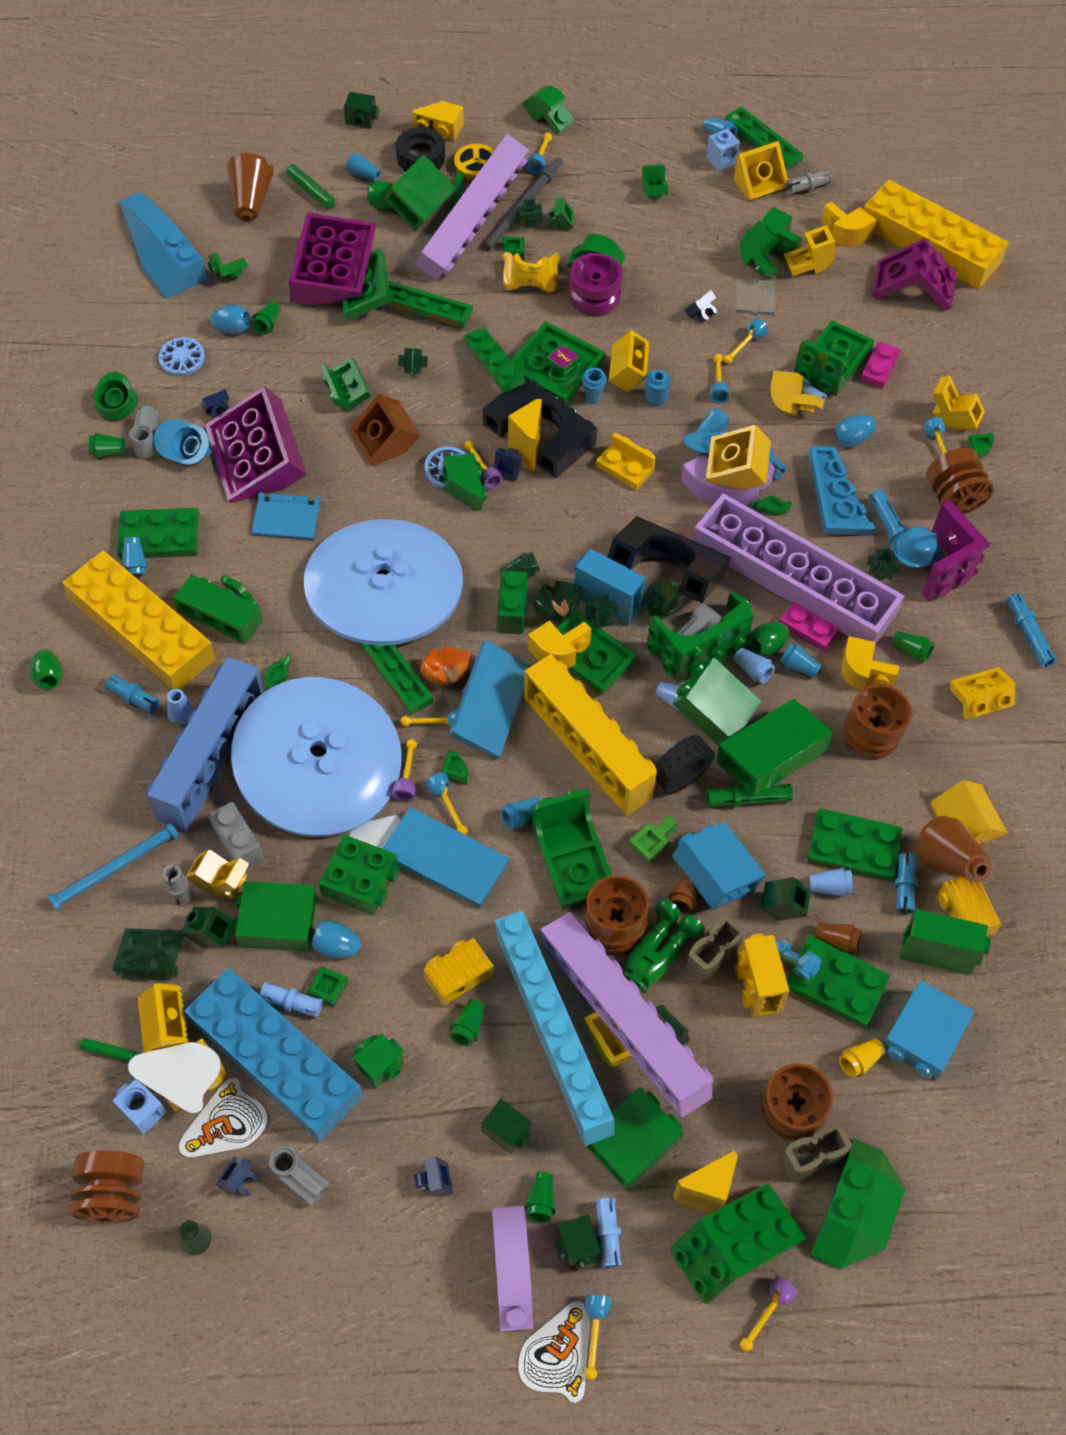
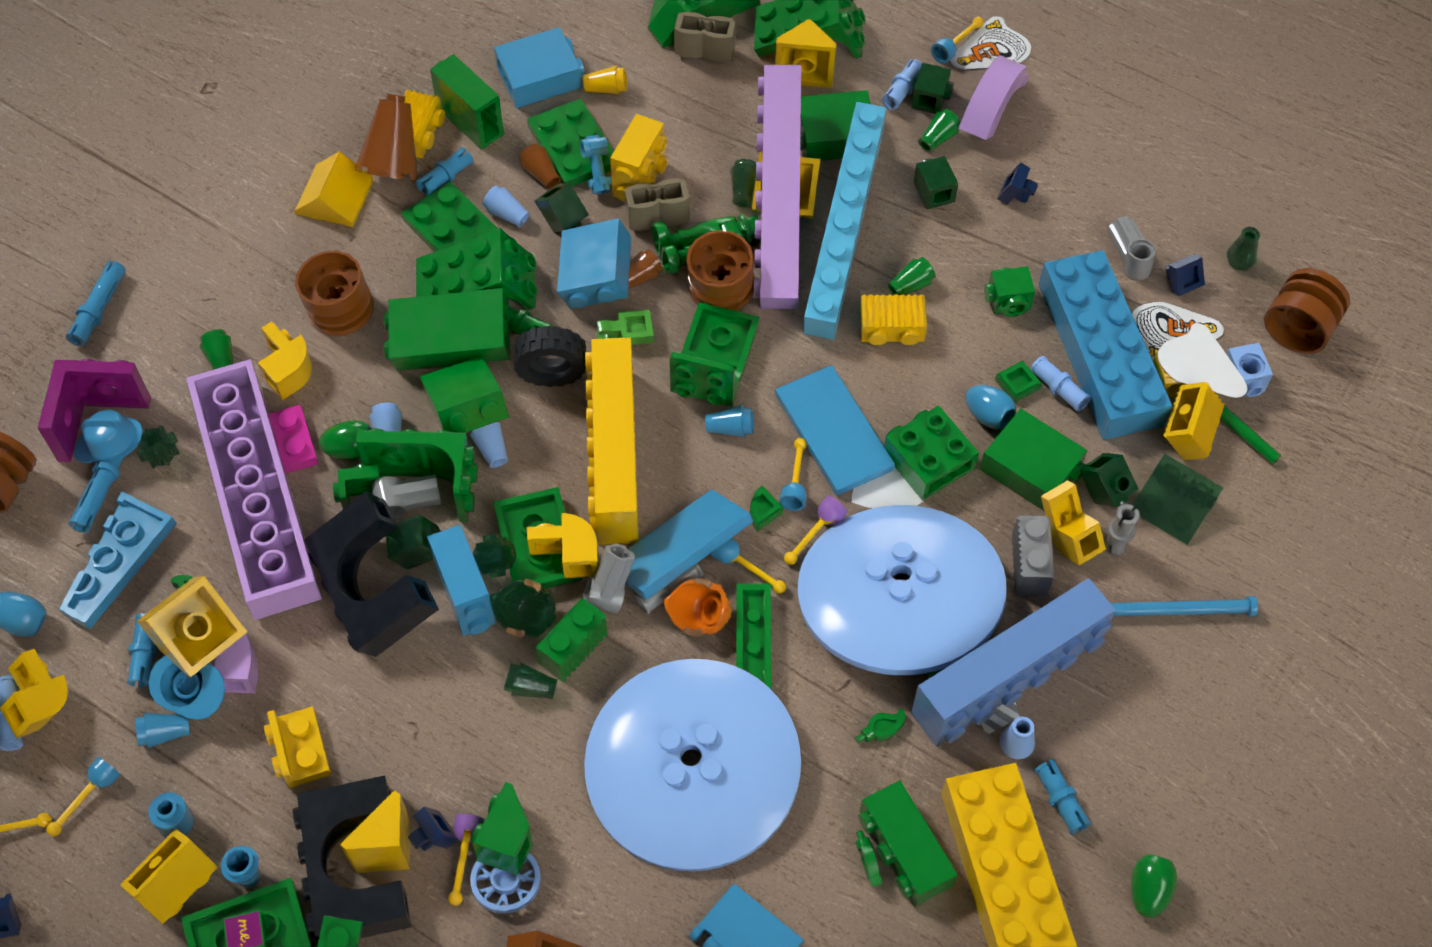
camera: 145 degrees left, 0 degrees up
(515, 640) = (607, 586): none -> light grey piece
(790, 802) = (480, 264): none -> green bracket
(799, 660) = (339, 404): dark azure cone -> none
(808, 1089) = (690, 68): dark orange wheel -> none
(984, 692) = (203, 277): yellow bracket -> none

